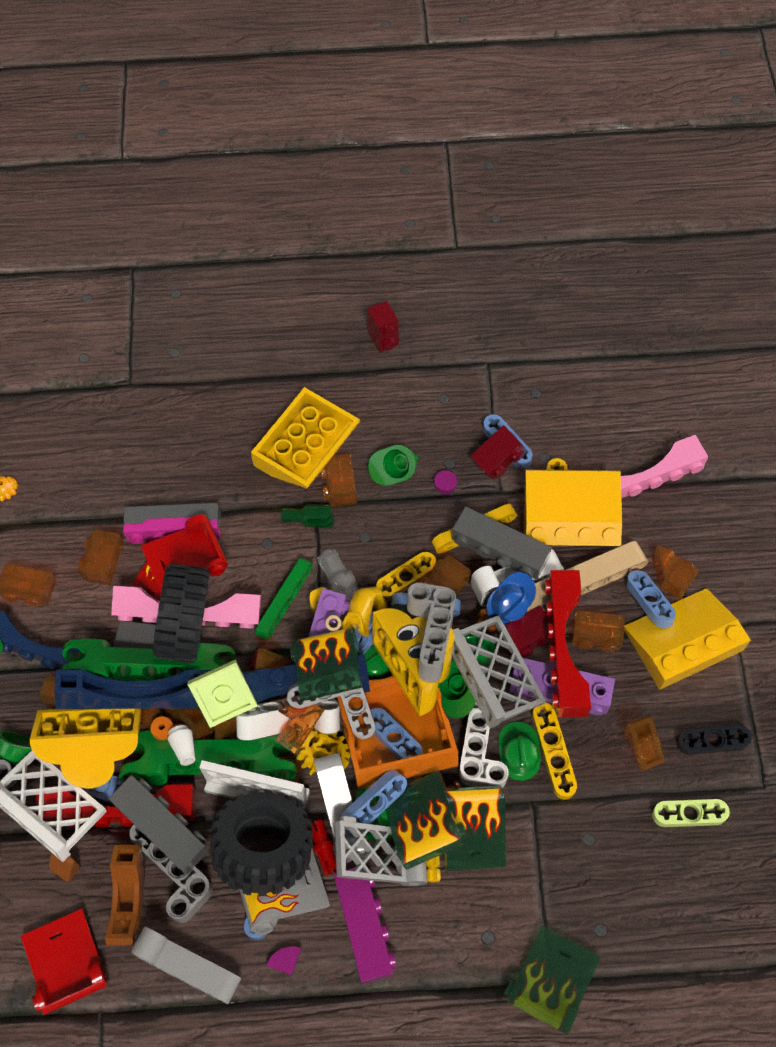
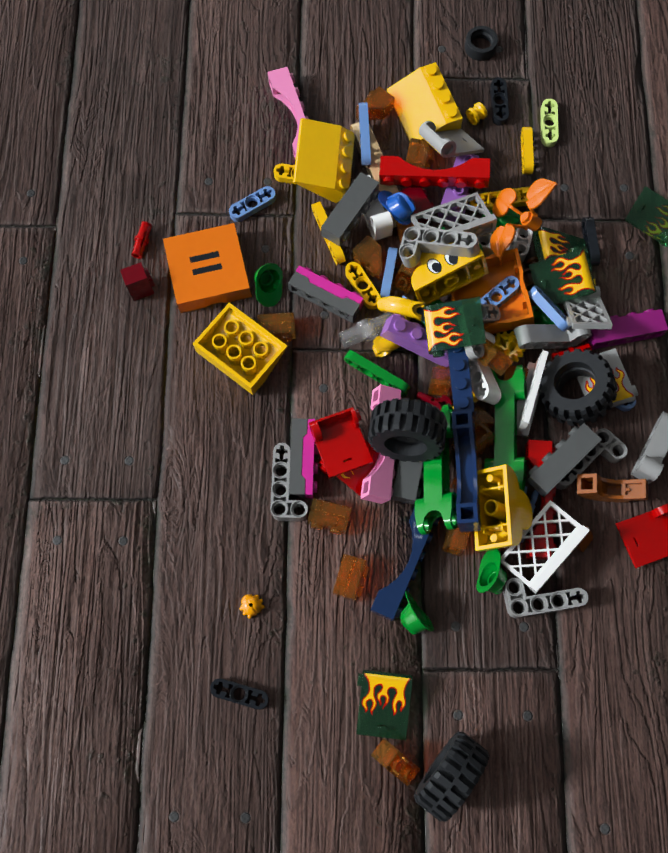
camera: 85 degrees left, 10 degrees up
(143, 496) = (283, 481): none -> light grey beam
(160, 722) = (486, 454): orange piece -> none
(182, 743) = (503, 442): white cone -> none
(222, 693) = (474, 402): yellowish green tile -> none
(285, 960) = (648, 383): magenta tile -> none
(310, 516) = (305, 351): dark green arm -> none
(331, 618) = (418, 322): tan piece -> none
(387, 532) = (326, 293): none -> dark grey piece
(412, 398) = (206, 267): none -> orange tile
(429, 328) = (141, 240): none -> red pin
(445, 482) = (283, 251): magenta tile -> none
(498, 453) = (267, 206): dark red brick -> none
(498, 873) = (590, 237): none -> black beam
(525, 760) = (536, 195): none -> orange plant
(617, 553) = (364, 134): none -> medium blue beam
(624, 665) = (449, 142): none -> light grey door
(636, 779) = (527, 150): none -> yellow beam
(645, 742) = (501, 140): clear orange slope -> none
(651, 608) = (405, 112): medium blue beam -> none
(684, 706) = (476, 113): none -> yellow wheel

